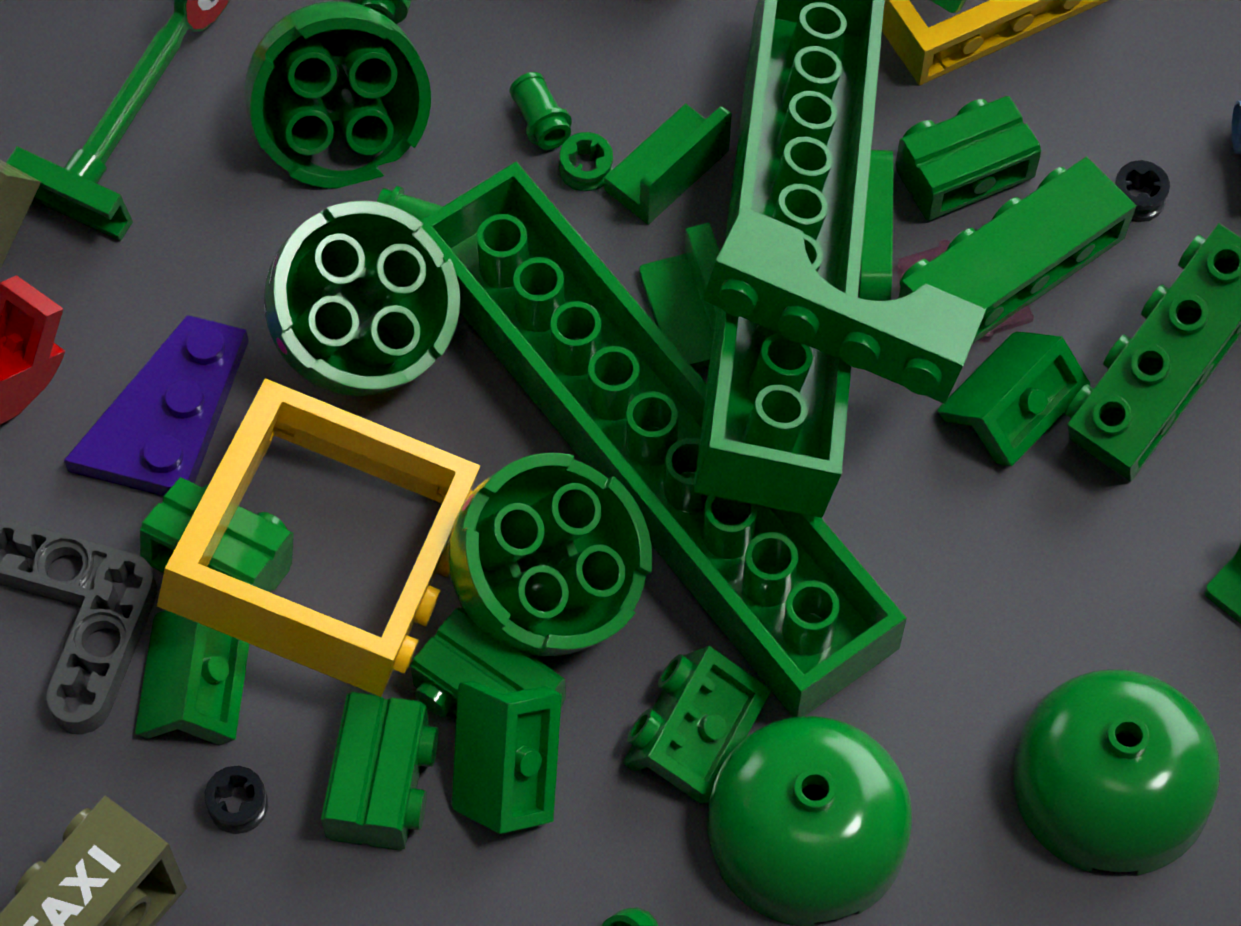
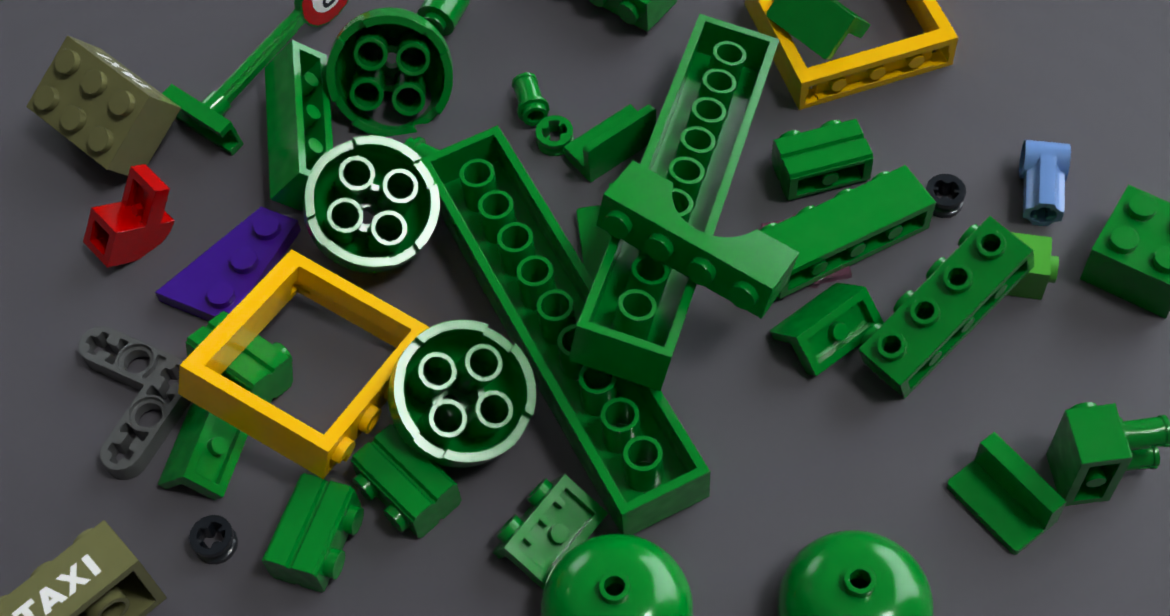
camera: 15 degrees right, 5 degrees down
(217, 186) = (296, 120): none -> green brick
(506, 756) = (404, 534): green panel -> none
(877, 246) = (747, 191): green beam -> none

